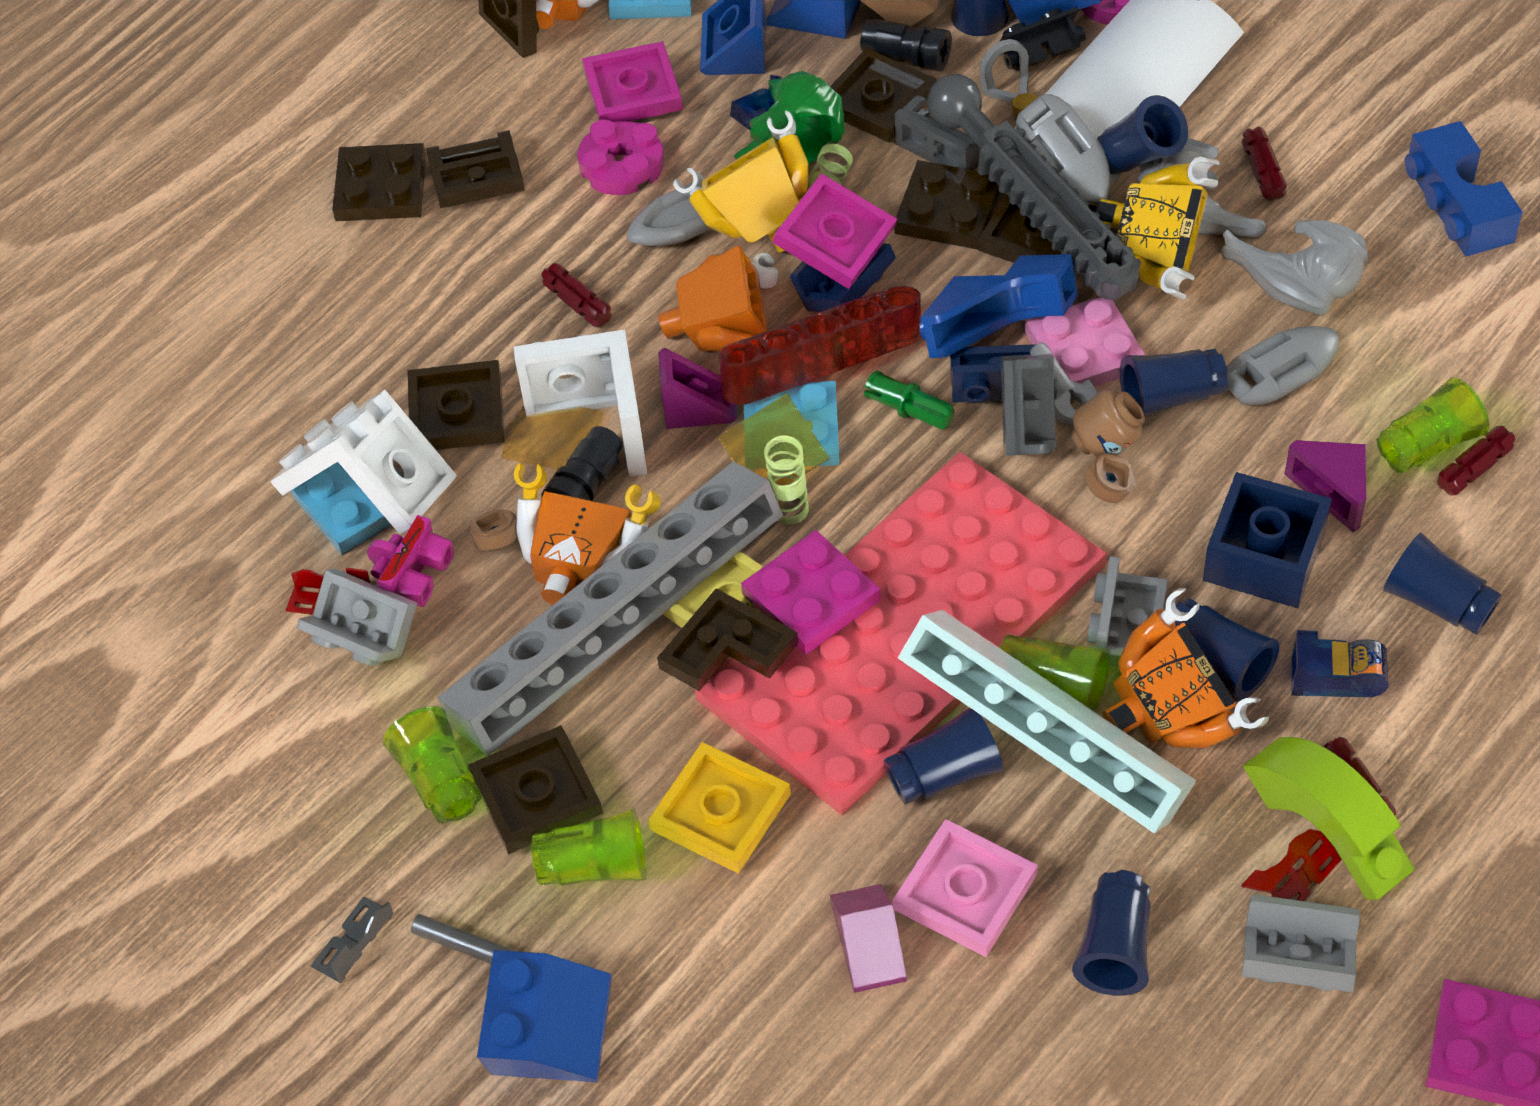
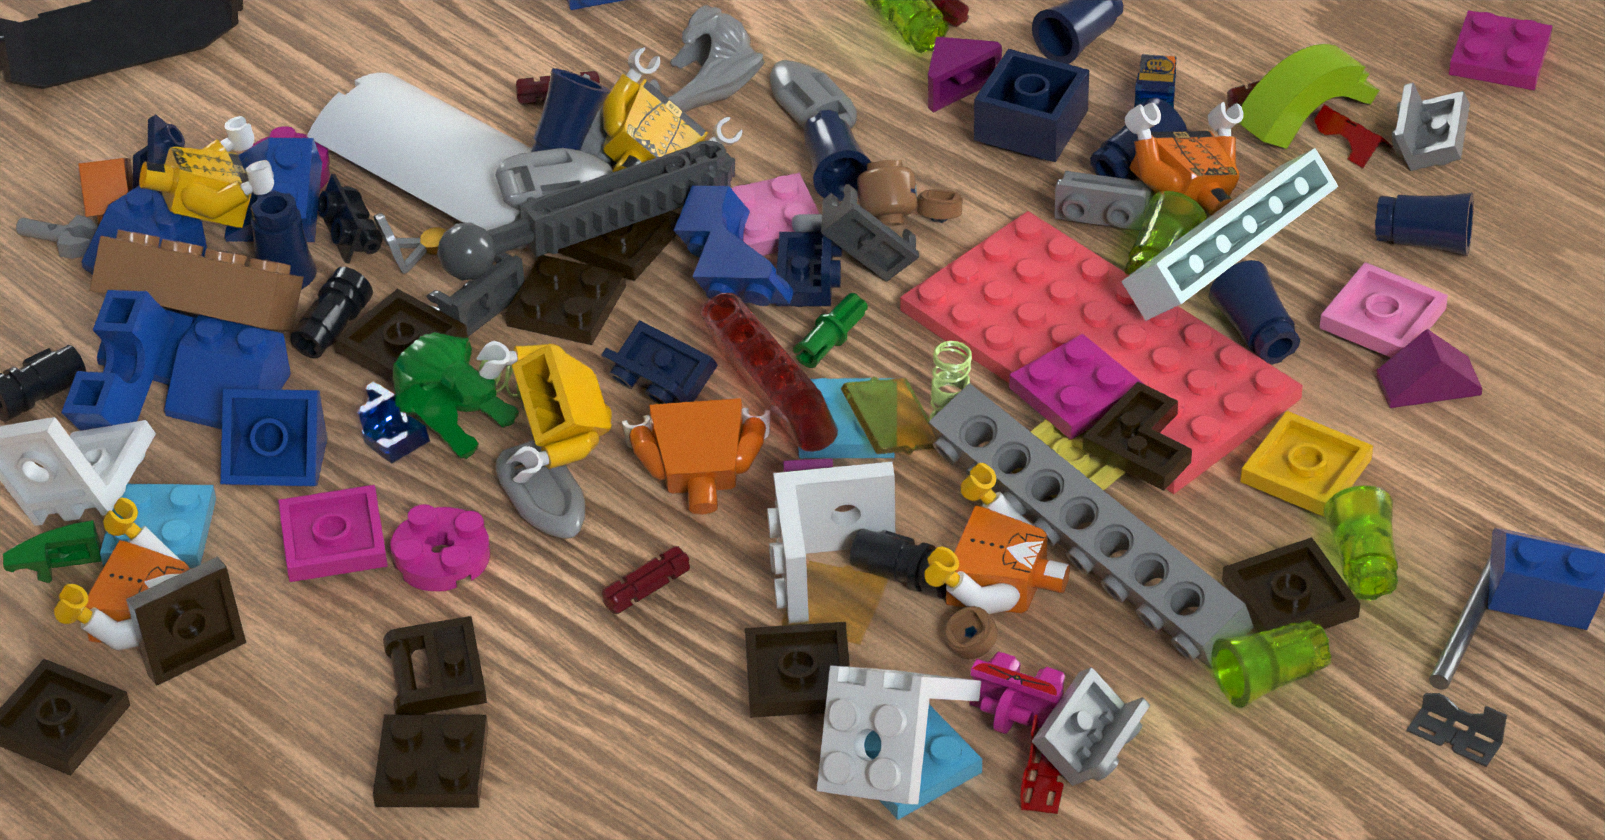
camera: 90 degrees left, 10 degrees down
(834, 231) = (633, 342): dark pink plate -> none

